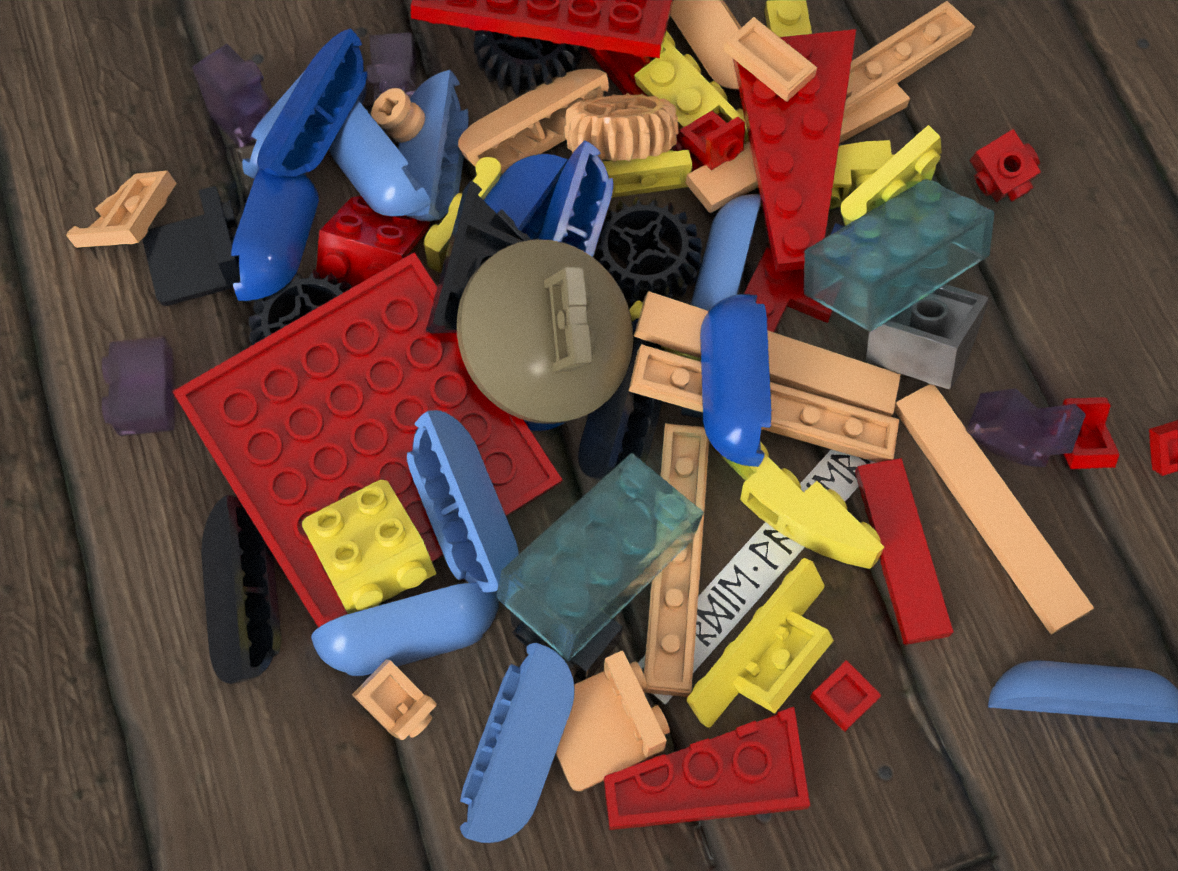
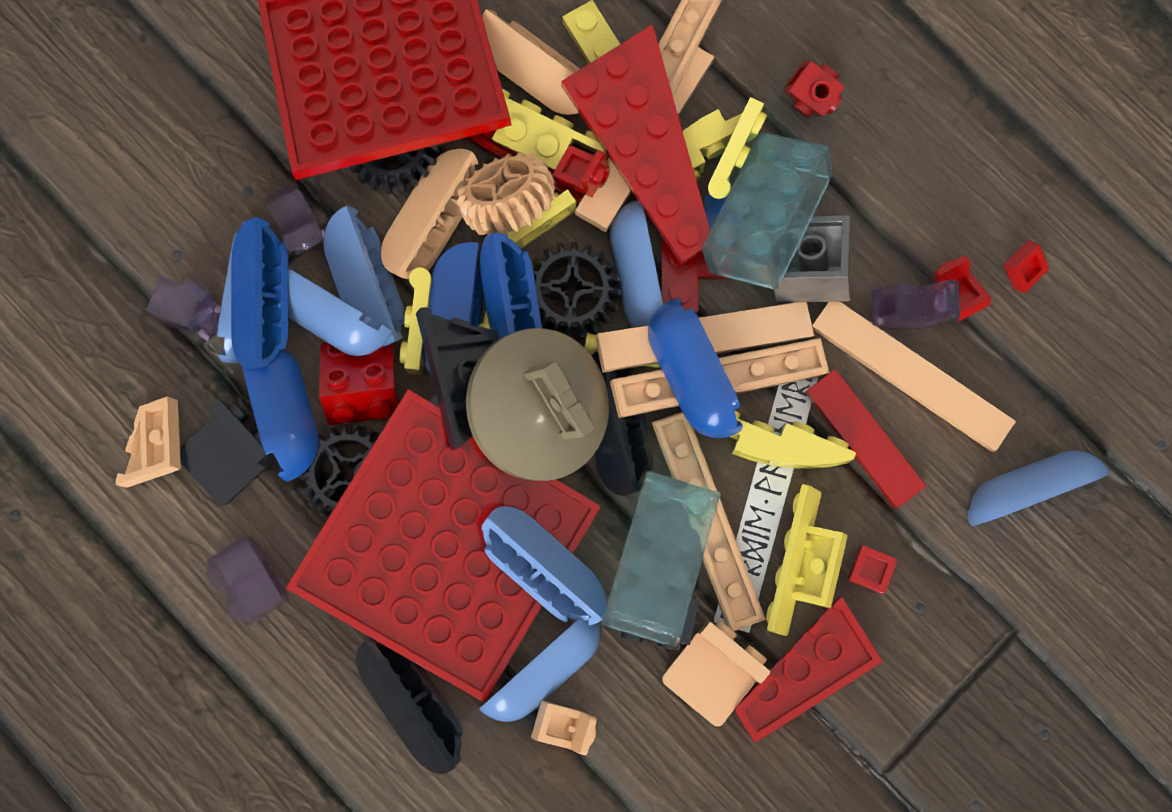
camera: 25 degrees left, 15 degrees up
(369, 547) = (489, 630): light yellow bracket -> none
(398, 115) = (330, 270): light nougat wheel -> none
(517, 746) = (665, 720): medium blue brick -> none
(770, 59) = (599, 87): light nougat tile -> none

